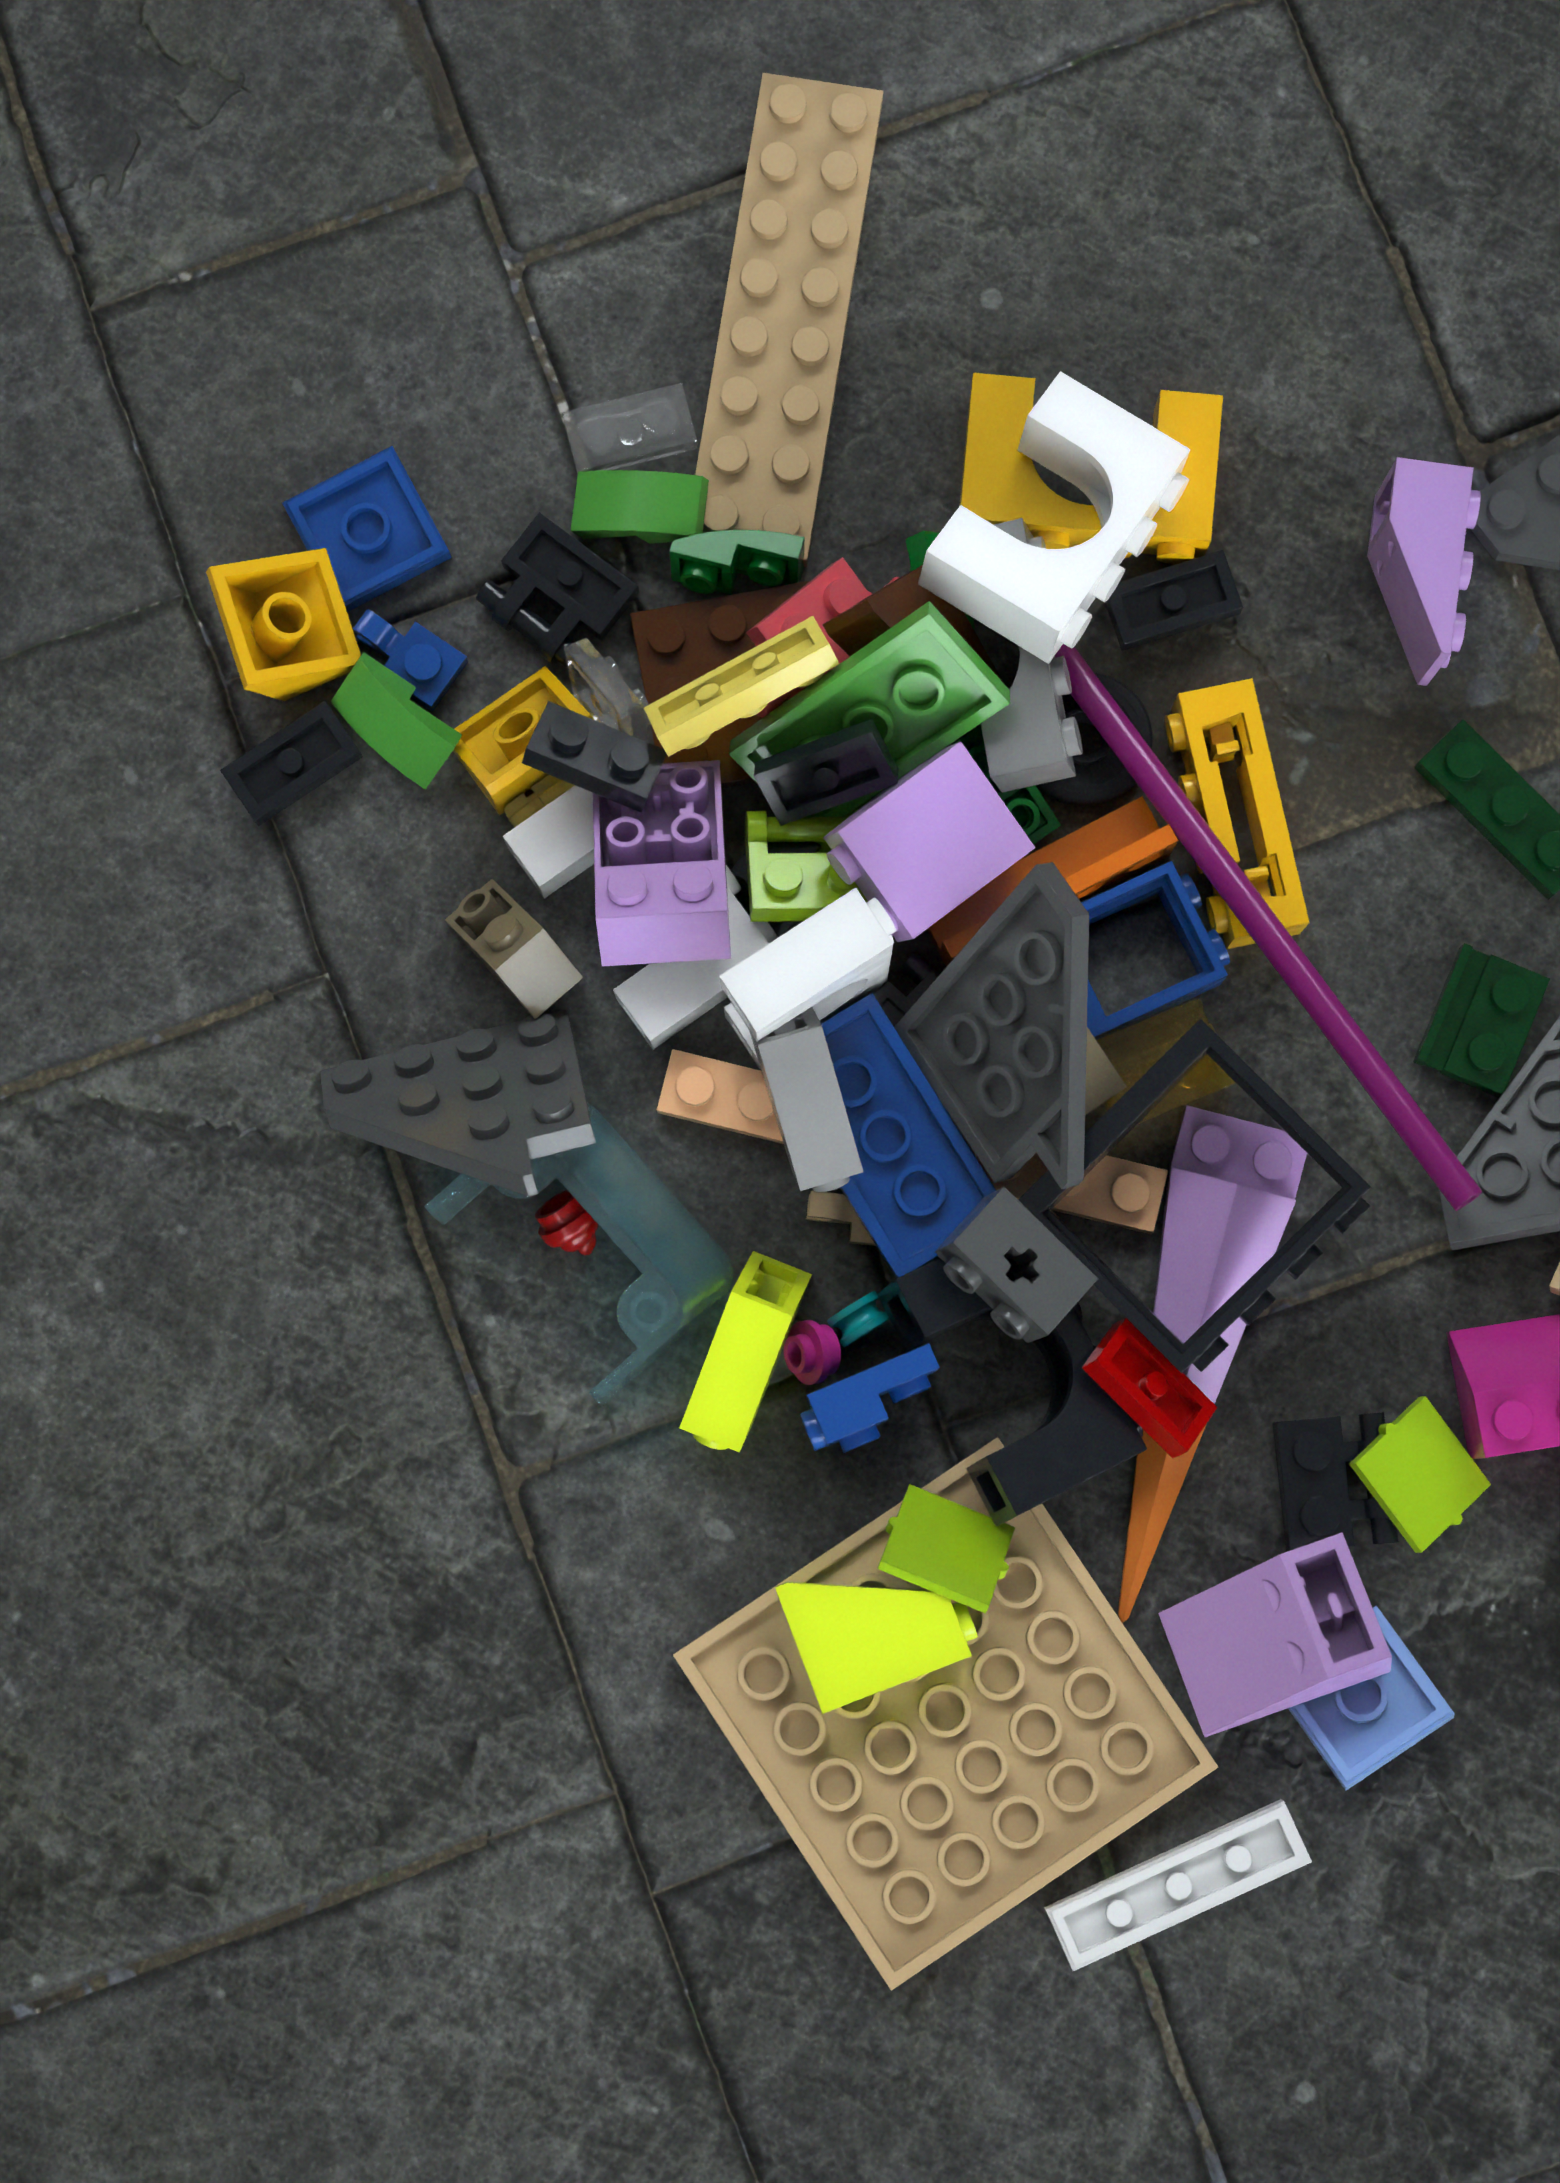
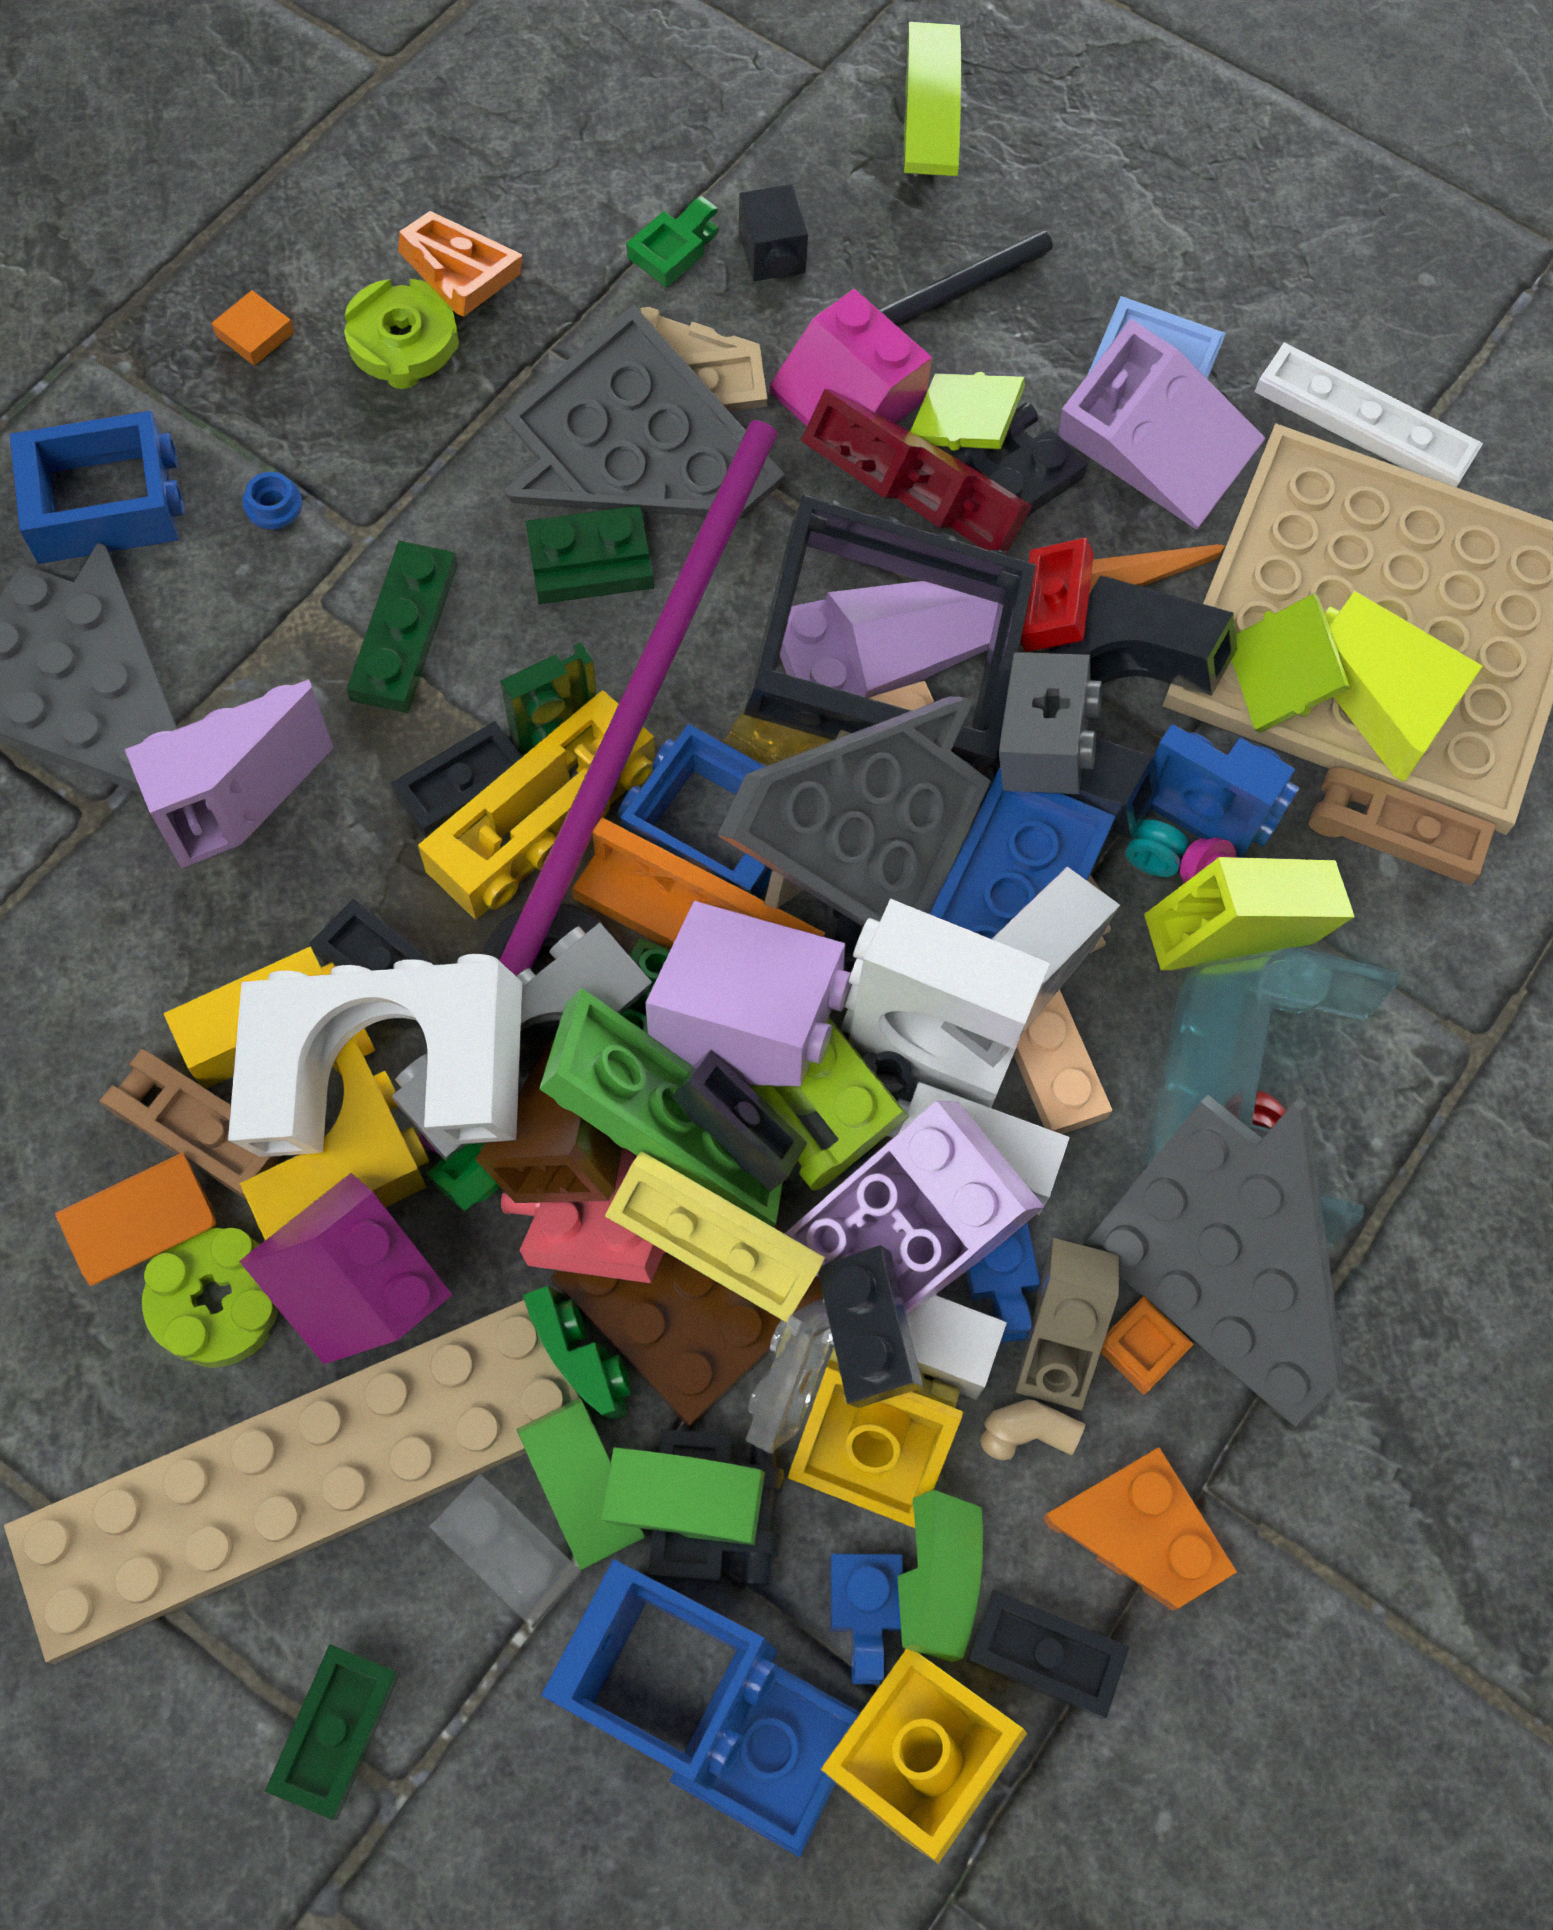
camera: 130 degrees left, 15 degrees down
(326, 901) = (1148, 1530): none -> orange wing
(459, 1001) = (1144, 1345): none -> orange tile
(463, 866) = (1025, 1422): none -> tan arm
(515, 447) = (600, 1641): none -> blue window
(572, 563) = (683, 1496): none -> bright green slope
(577, 926) = (1004, 1279): none -> blue plate
(582, 239) = (332, 1732): none -> dark green plate
(738, 1561) = (1402, 824): none -> medium nougat plate
(909, 424) = (346, 1274): none -> magenta slope
(948, 295) = (193, 1332): none -> lime plate
(1062, 297) = (136, 1219): none -> orange slope
(1132, 372) = (184, 1120): none -> medium nougat plate
(1309, 763) = (454, 777): none -> black plate
(1324, 866) = (546, 696): none -> dark green plate
(1395, 1362) = (914, 472): none -> dark red slope

